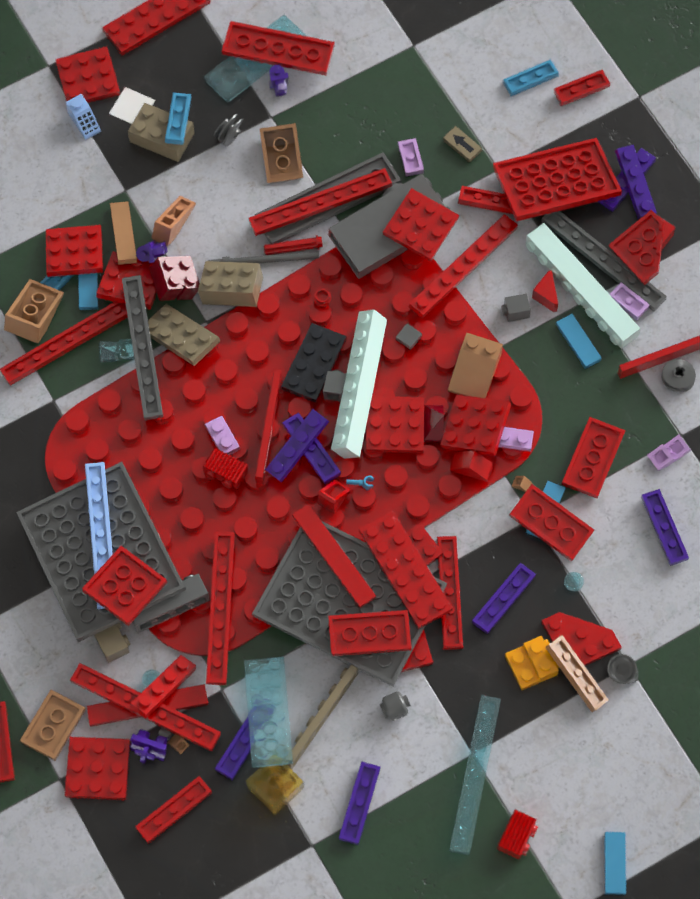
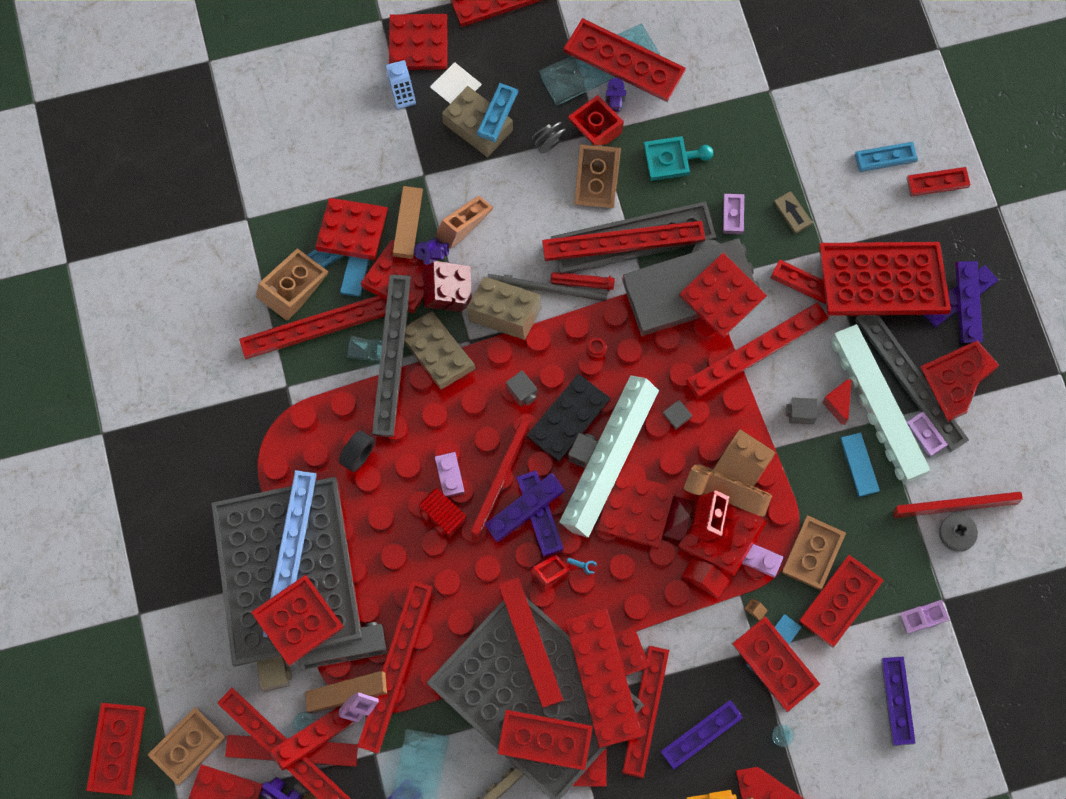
camera: 15 degrees right, 5 degrees up
(134, 435) = (356, 451): none -> black tyre
(182, 641) = (338, 693): none -> medium nougat tile
(196, 648) = (357, 707): none -> lavender slope
(266, 347) = (522, 389): none -> dark grey brick
(269, 106) = (597, 121): none -> red slope
(341, 123) = (669, 158): none -> teal plate
(461, 409) = (710, 516): none -> red brick
(470, 386) = (740, 494): none -> medium nougat beam
(559, 423) = (813, 553): none -> medium nougat plate

